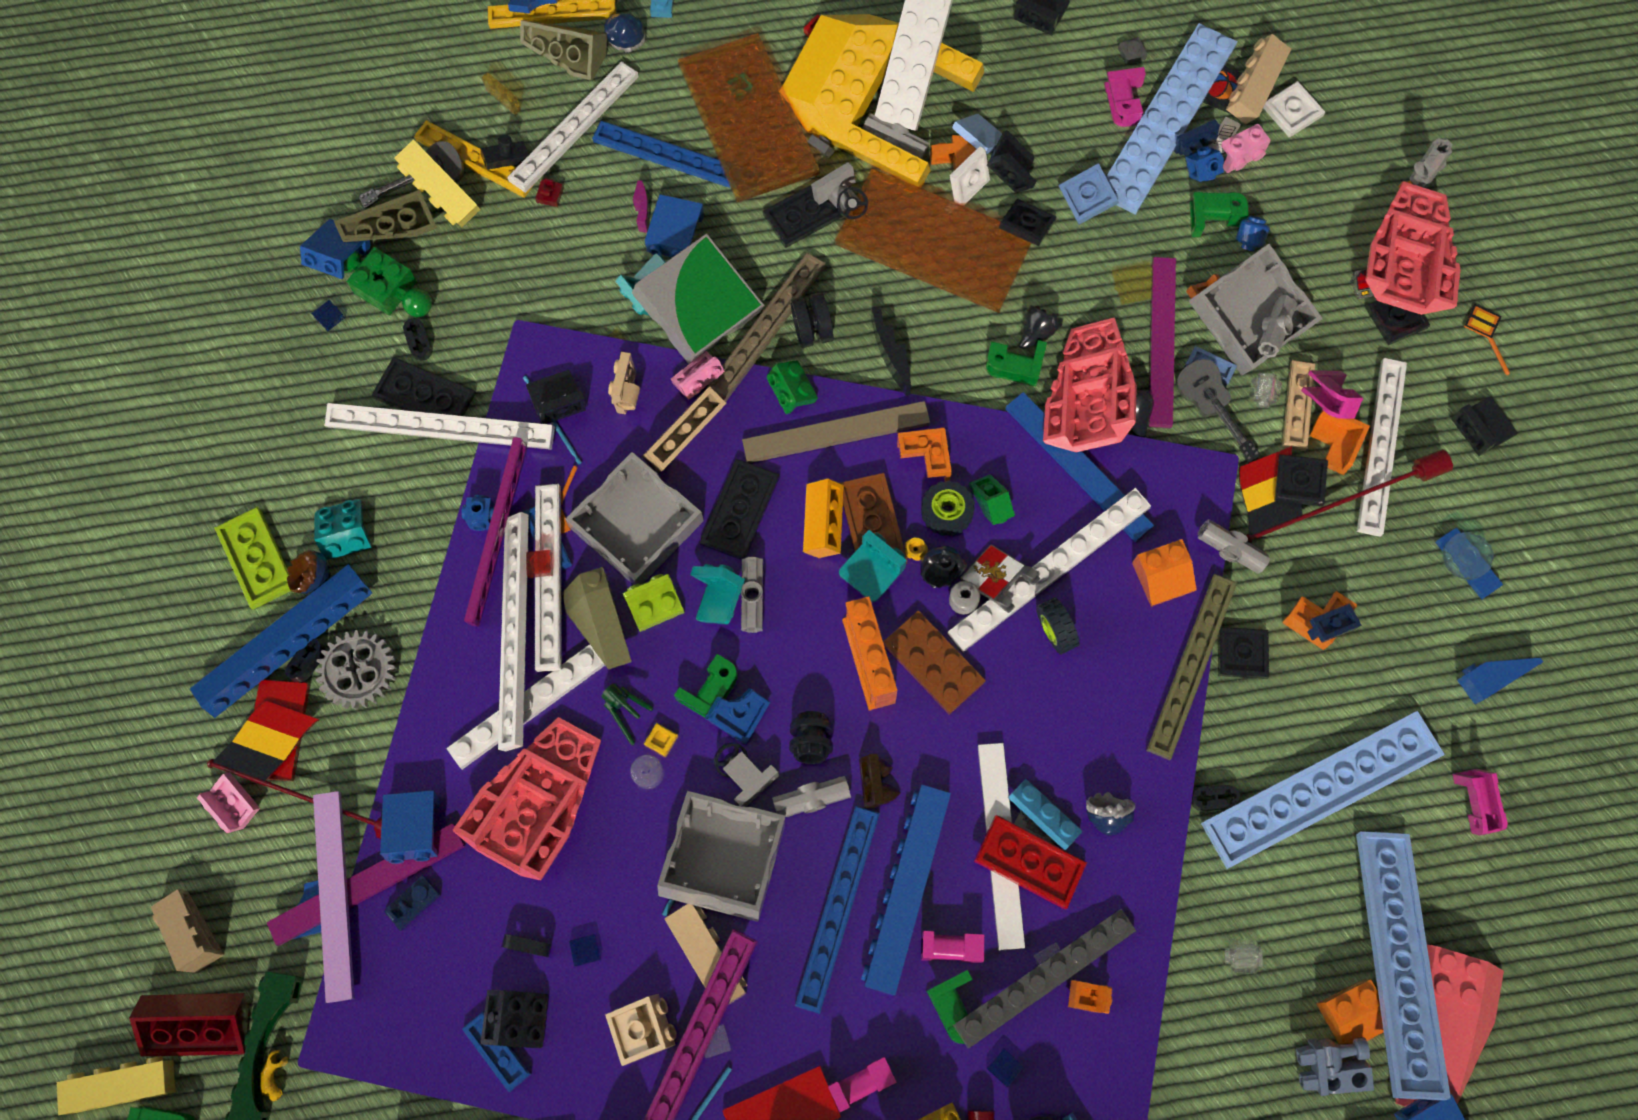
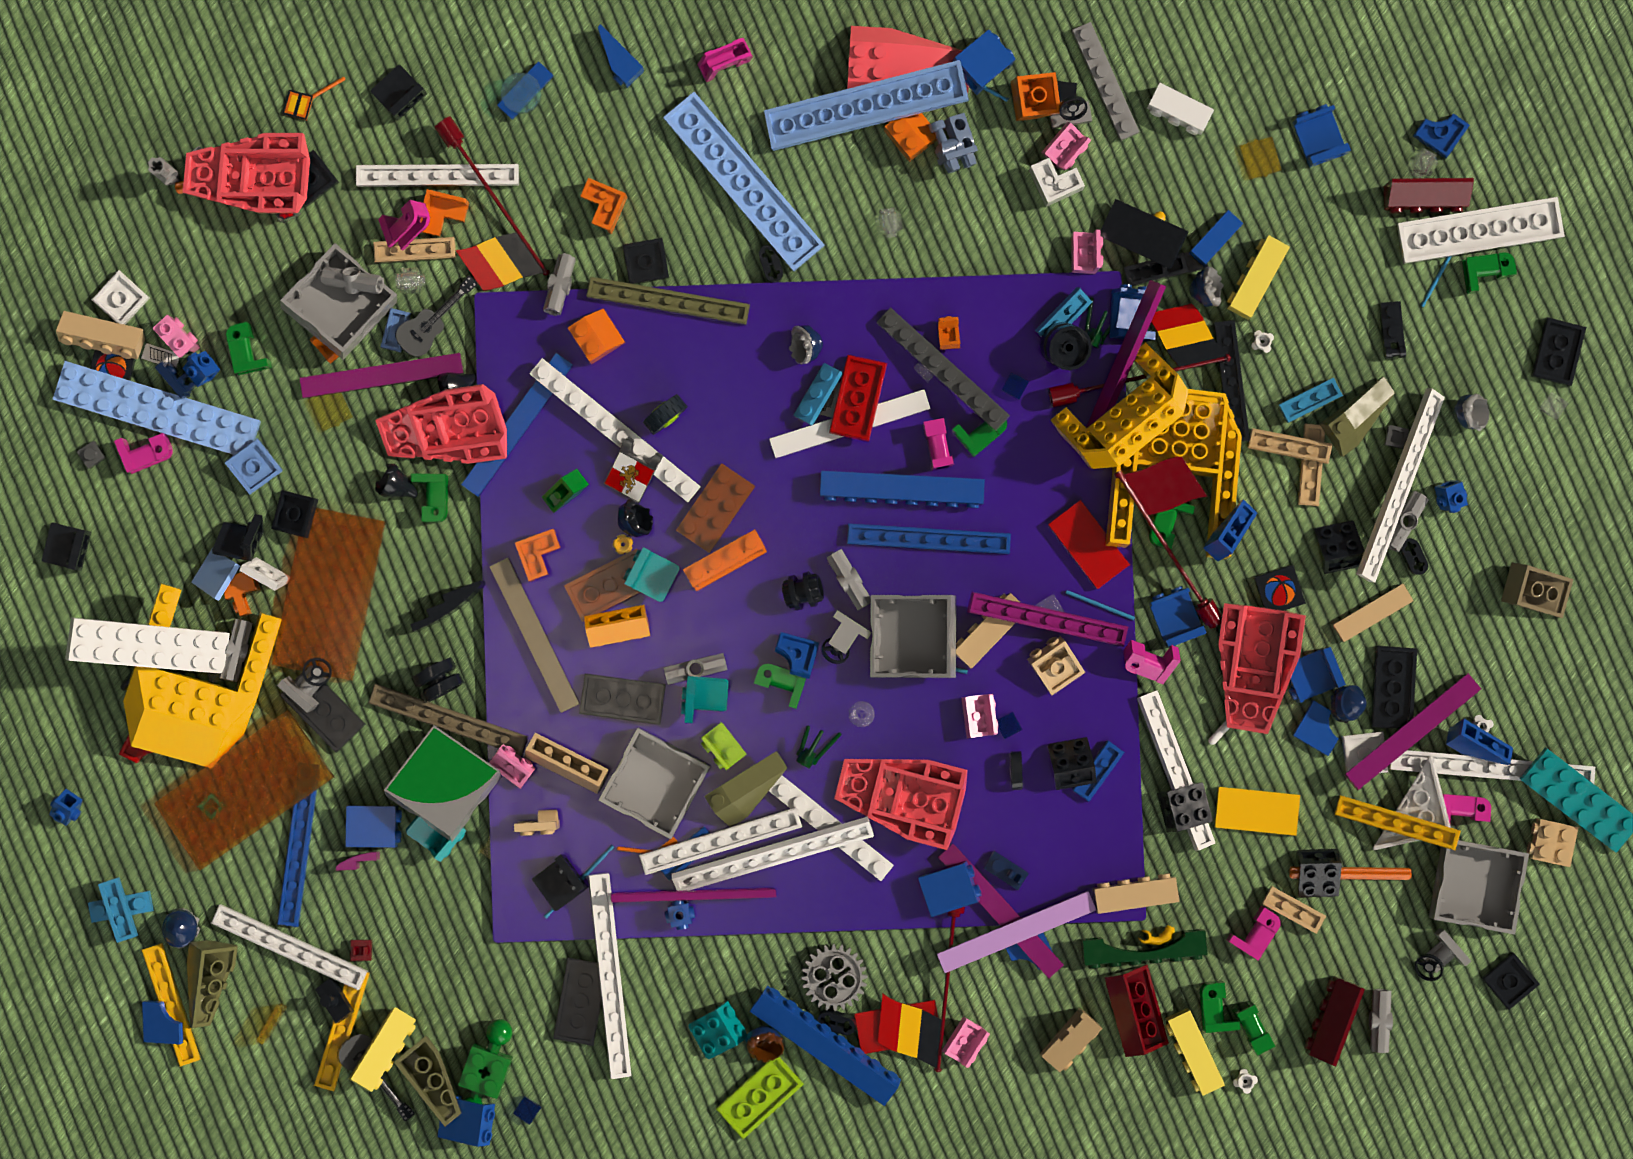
camera: 105 degrees left, 15 degrees up
(329, 1060) = (1135, 894): none -> tan brick
(413, 341) = (528, 1019): black beam -> none
(539, 563) = (713, 849): clear red plate -> none
(605, 916) = (980, 715): none -> bright pink bracket
(661, 740) = (832, 711): yellow tile -> none
(791, 385) = (501, 683): green bracket -> none
(822, 145) = (259, 715): dark grey plate -> none
(862, 1083) = (1046, 481): dark pink piece -> none
(874, 791) = (832, 531): dark brown tile -> none
(950, 495) = (569, 525): black wheel -> none
(969, 602) = (657, 487): light grey piece -> none
(1252, 233) = (260, 315): blue head -> none
(1301, 480) = (486, 238): black tile -> none
(1334, 623) = (612, 194): dark blue plate -> none

